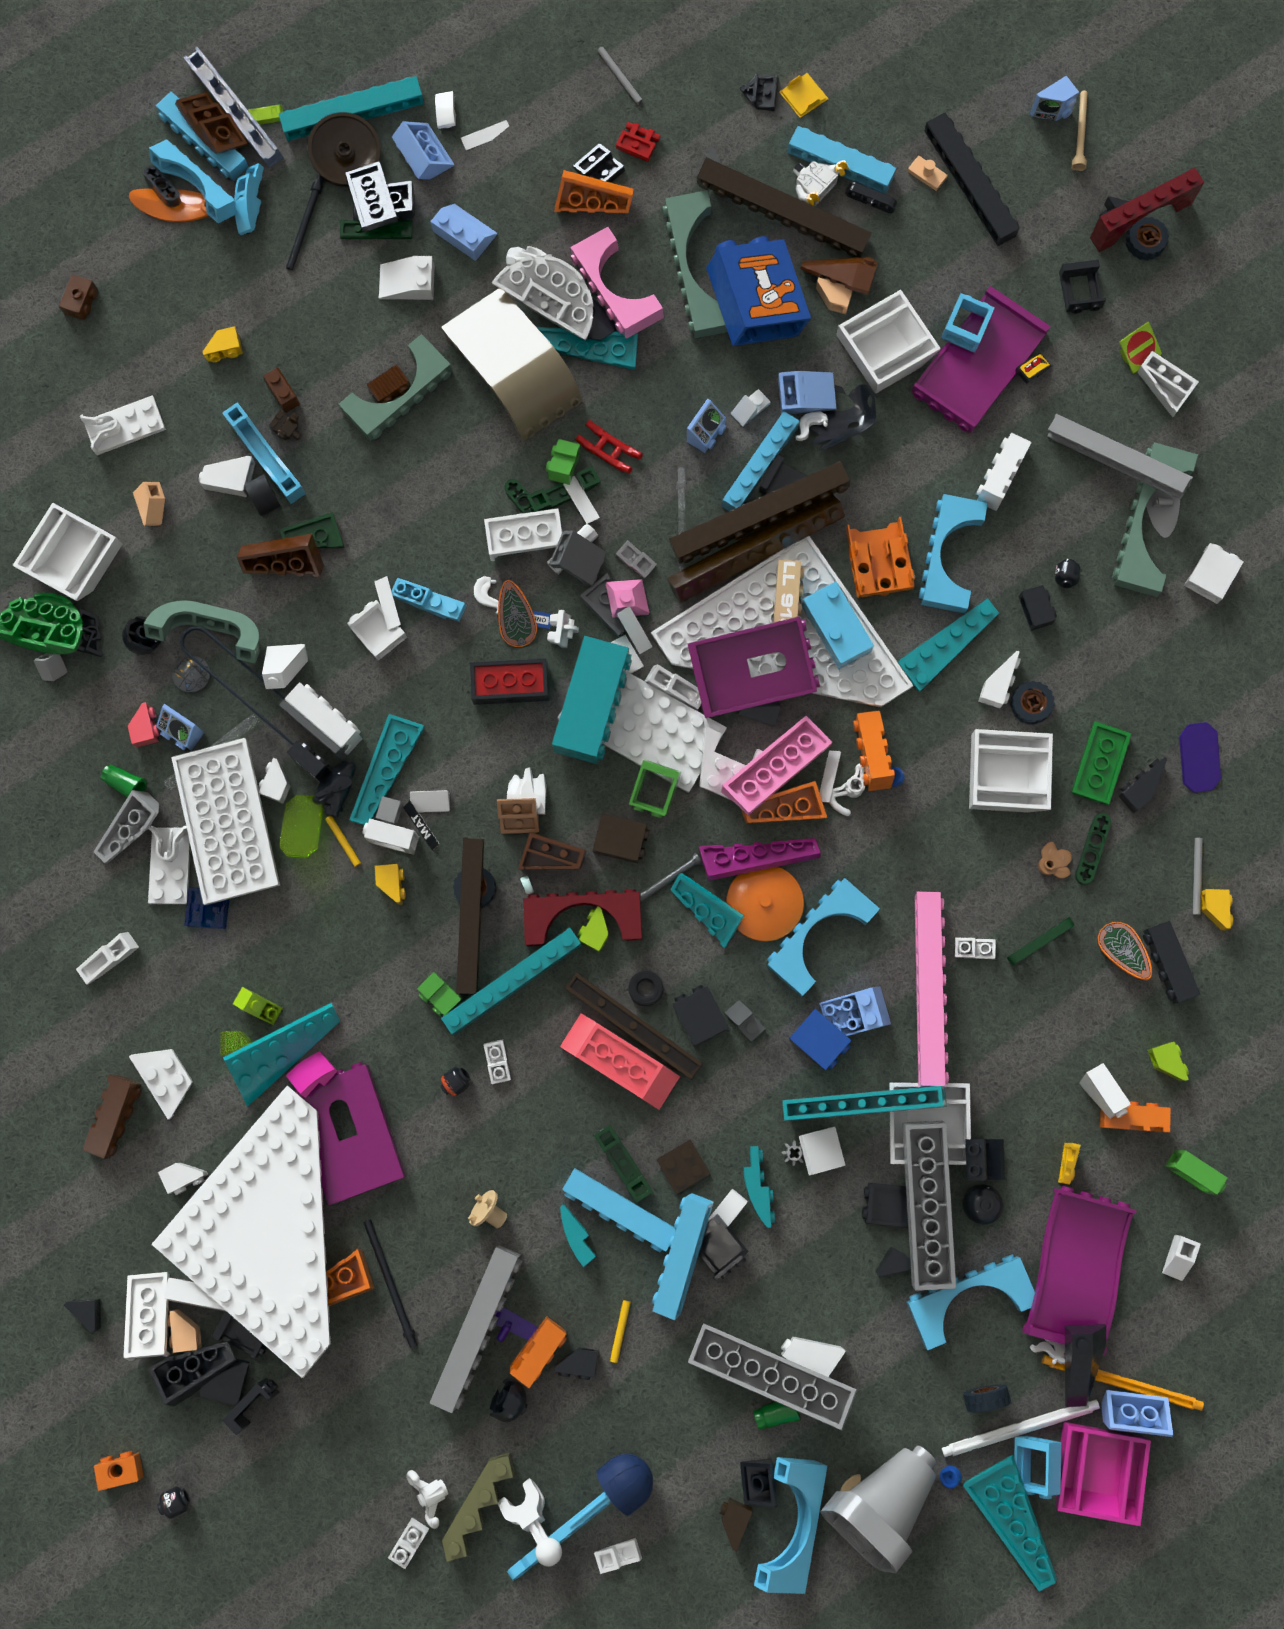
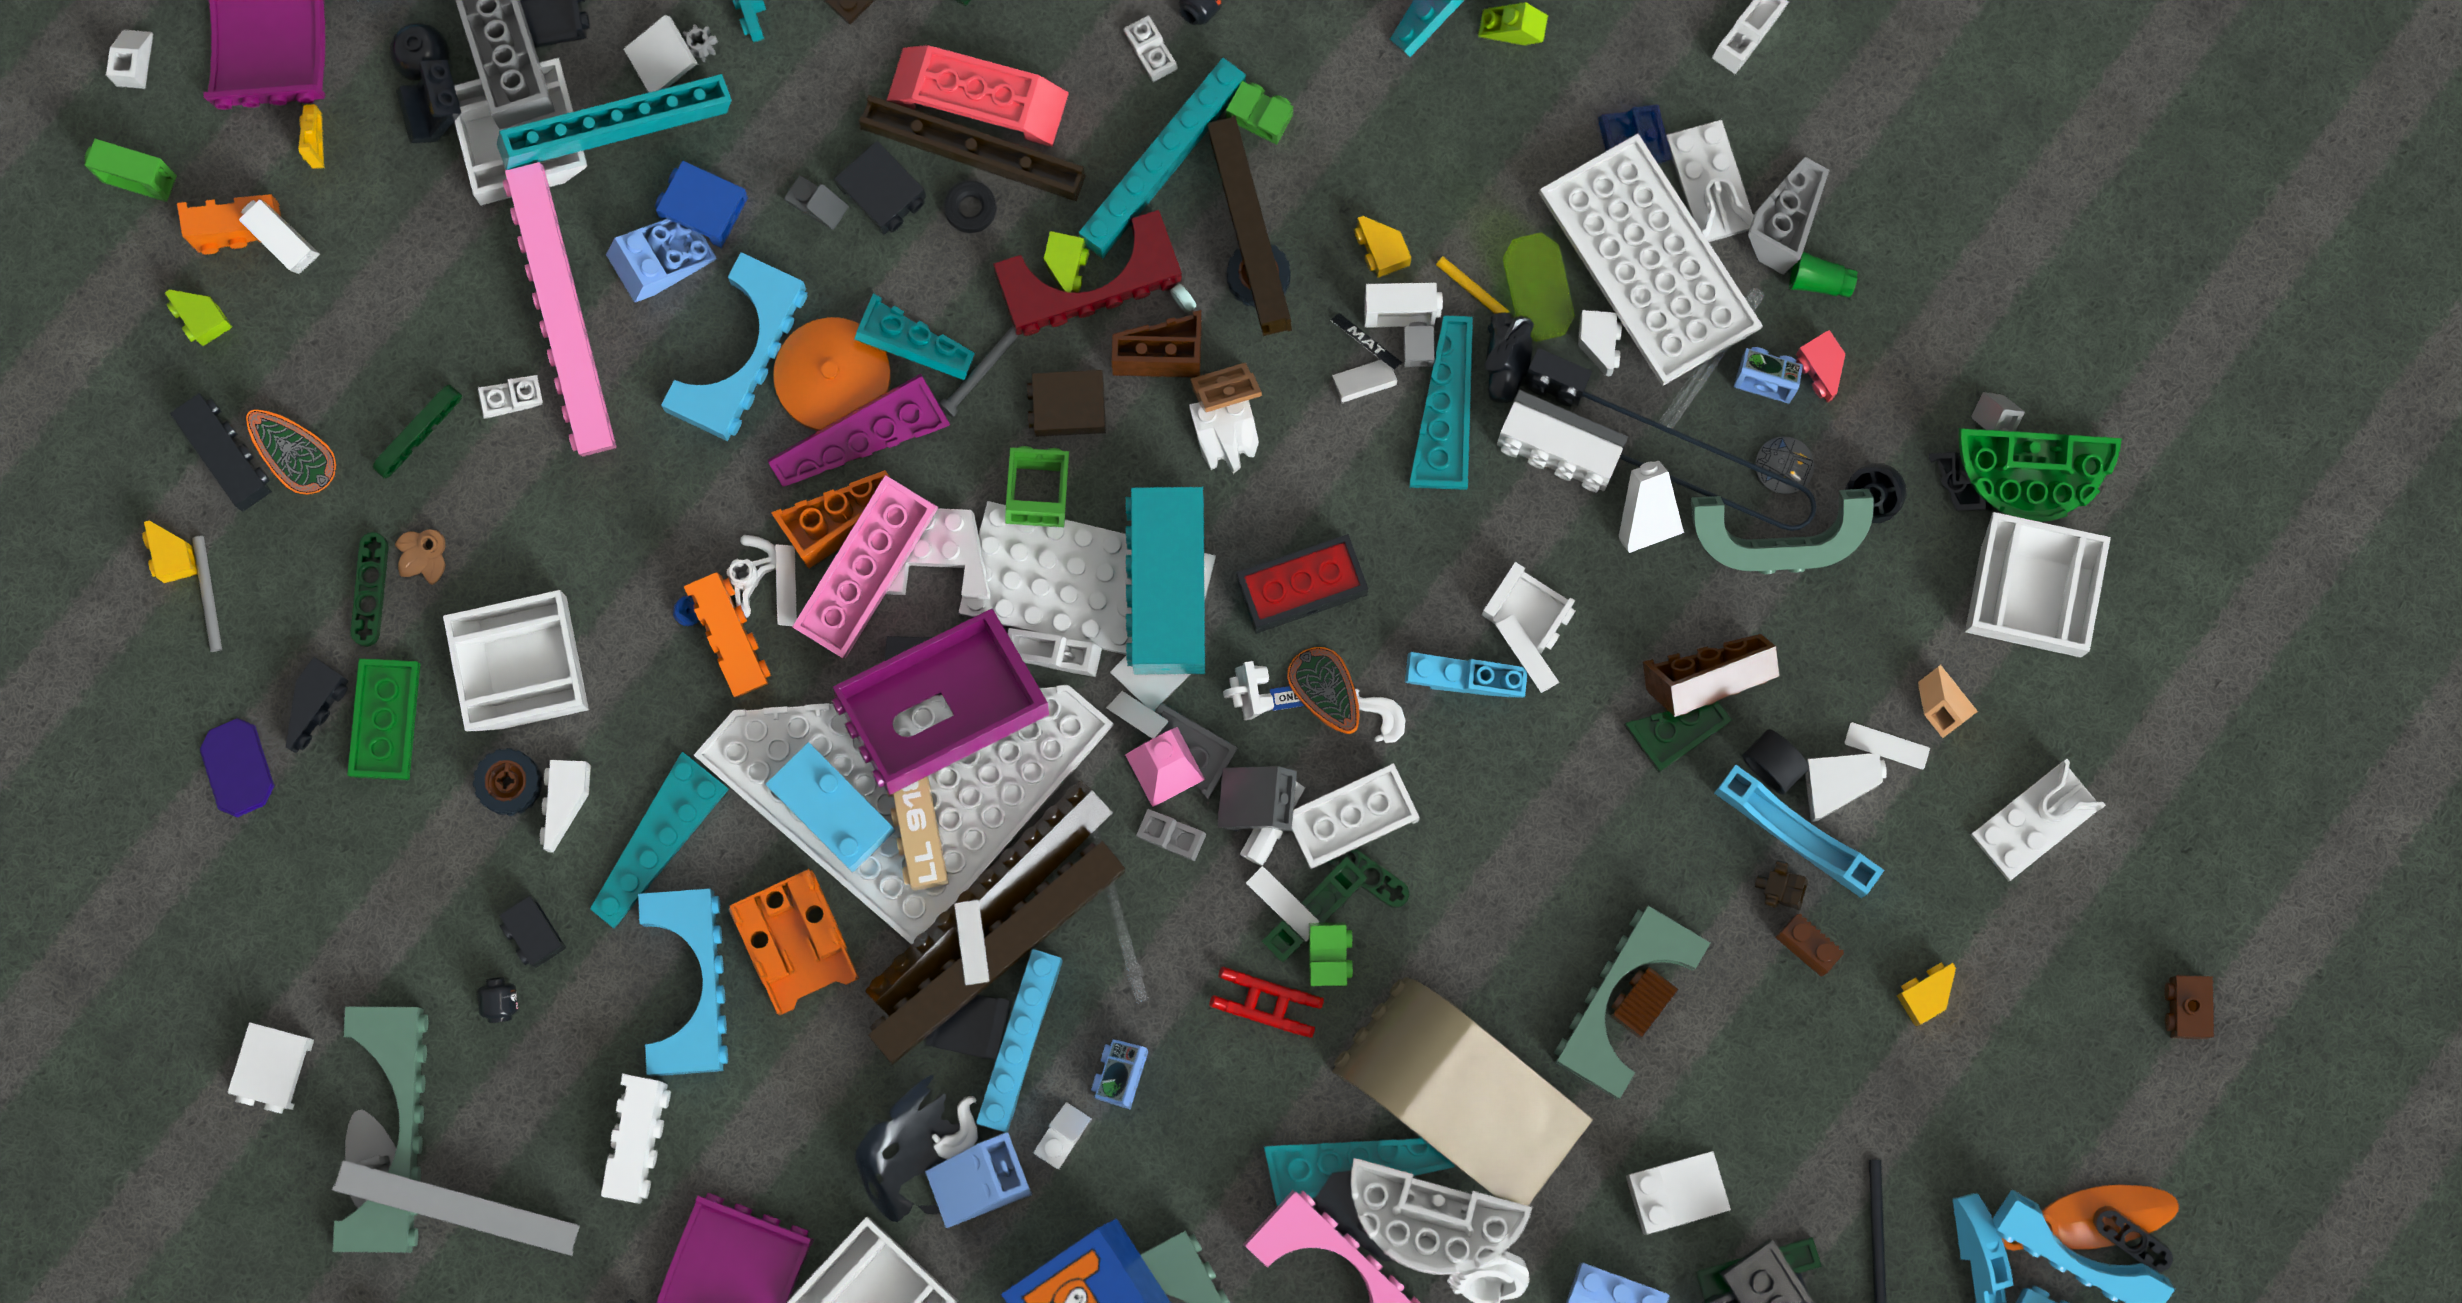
camera: 160 degrees right, 0 degrees up
(194, 492) = (1887, 745): none -> white sticker
(773, 518) = (972, 942): none -> white sticker

